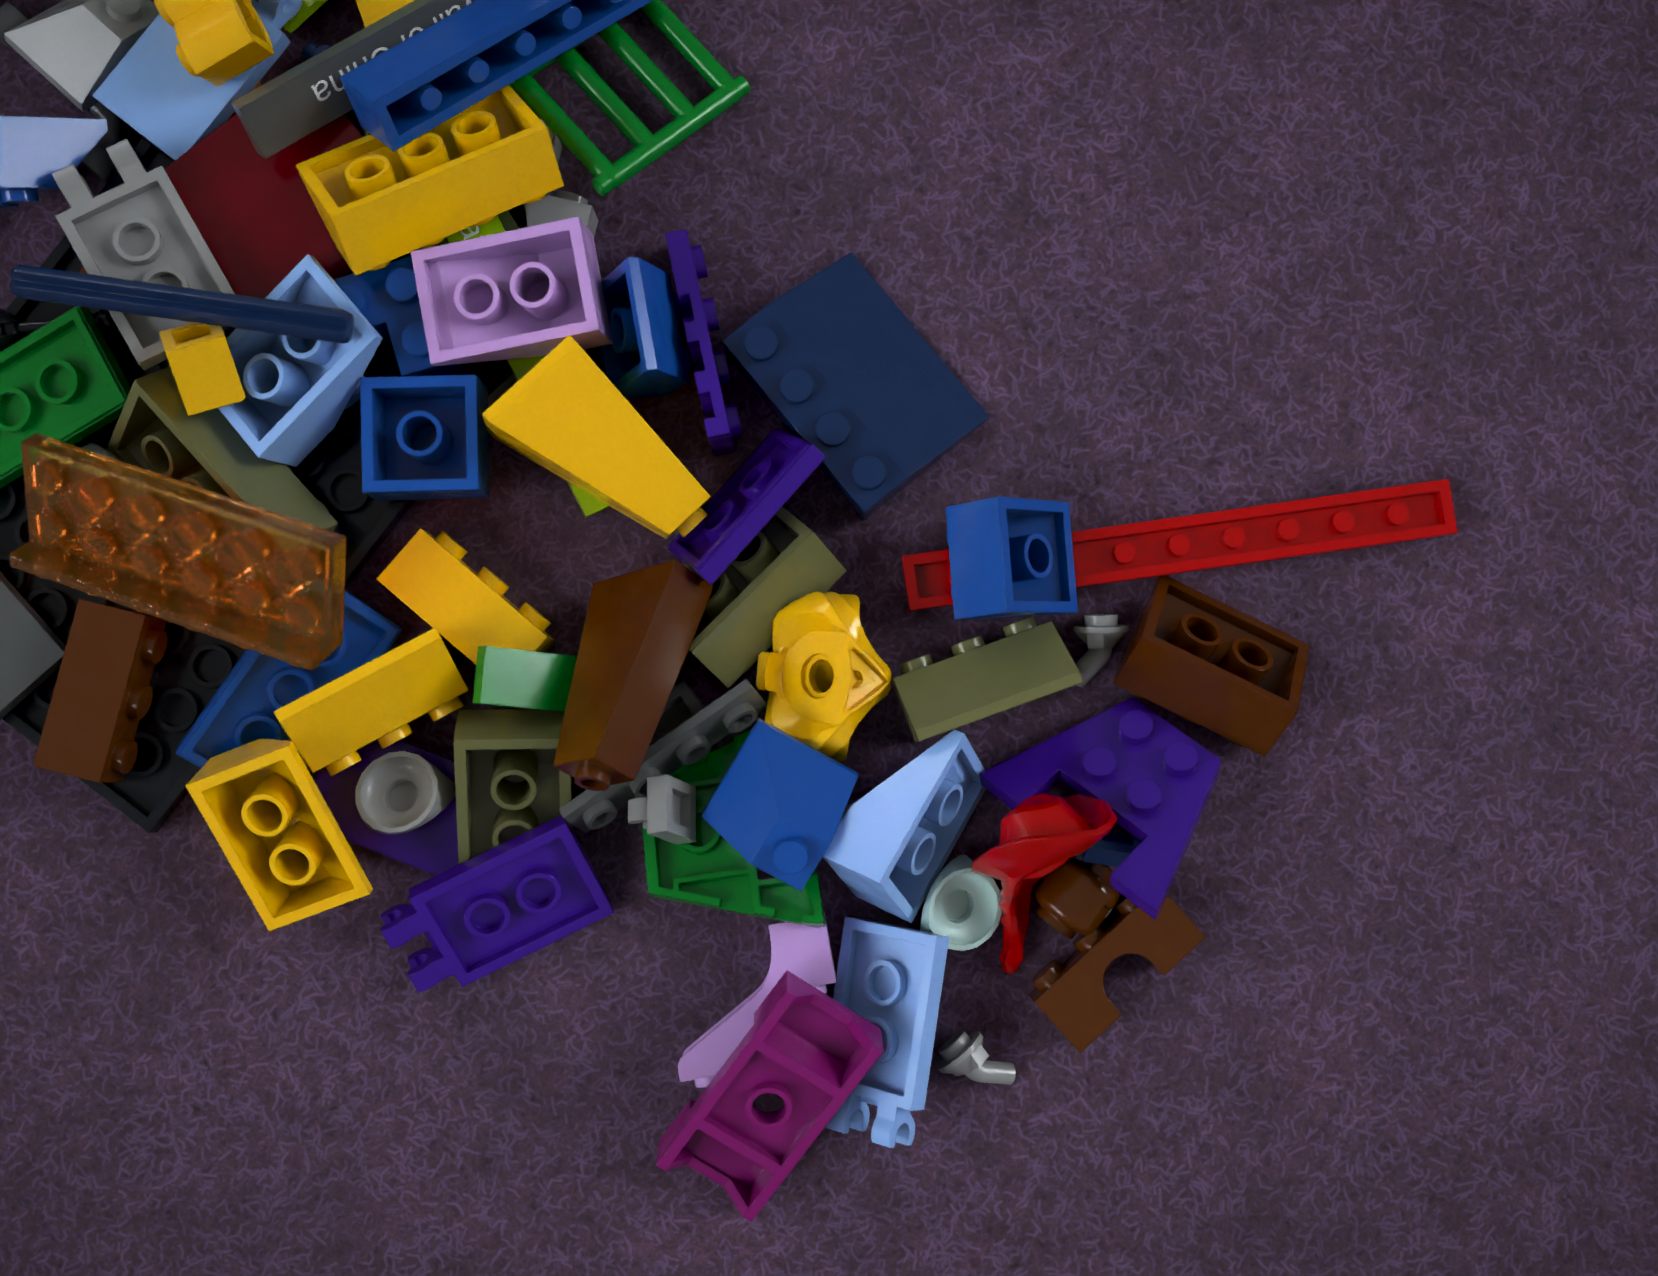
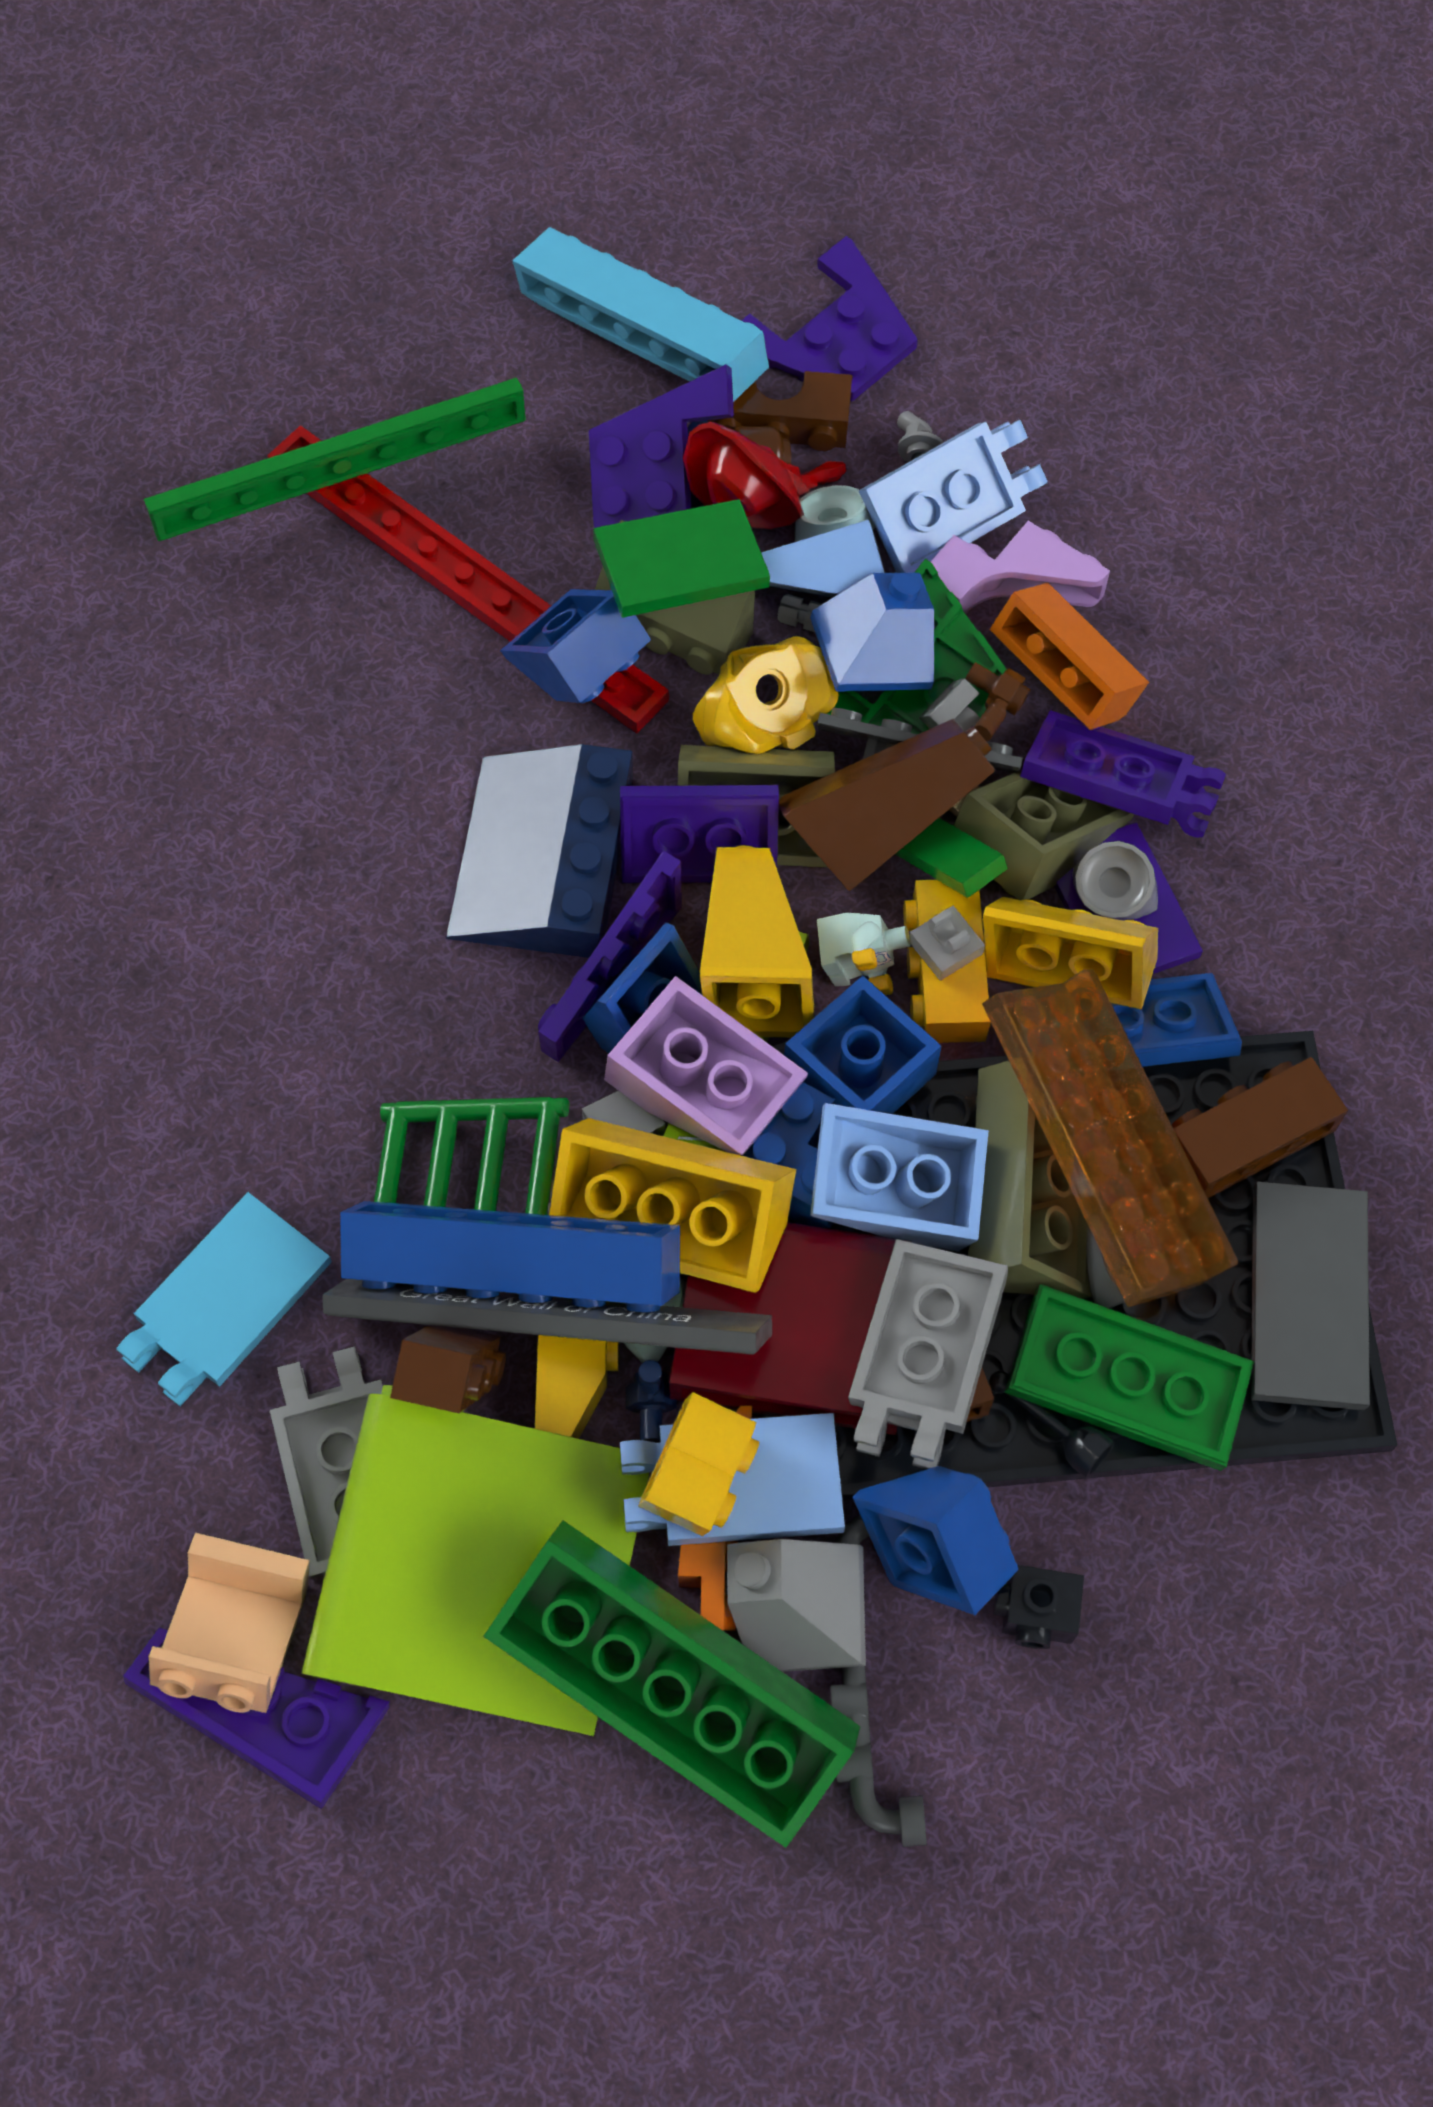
camera: 135 degrees left, 20 degrees down
(182, 303) = (937, 1260): dark blue axle -> none
(202, 366) = (963, 1218): yellow panel -> none
(277, 832) = (1214, 923): yellow slope -> none
(465, 603) = (946, 943): none -> light grey tile
(540, 545) = (859, 946): none -> light aqua piece
(636, 864) = (1005, 695): none -> reddish brown piece
(638, 970) = (1068, 655): none -> orange brick
(799, 1049) = (1059, 505): magenta piece -> none
(991, 690) = (681, 558): none -> green tile
(1101, 634) = (571, 572): light grey plate -> none
(1136, 1102) = (853, 335): none -> dark purple wing
(1214, 666) = (525, 493): reddish brown slope -> none
(1313, 923) = (638, 311): none -> medium azure brick
(1381, 521) = (336, 459): none -> green tile

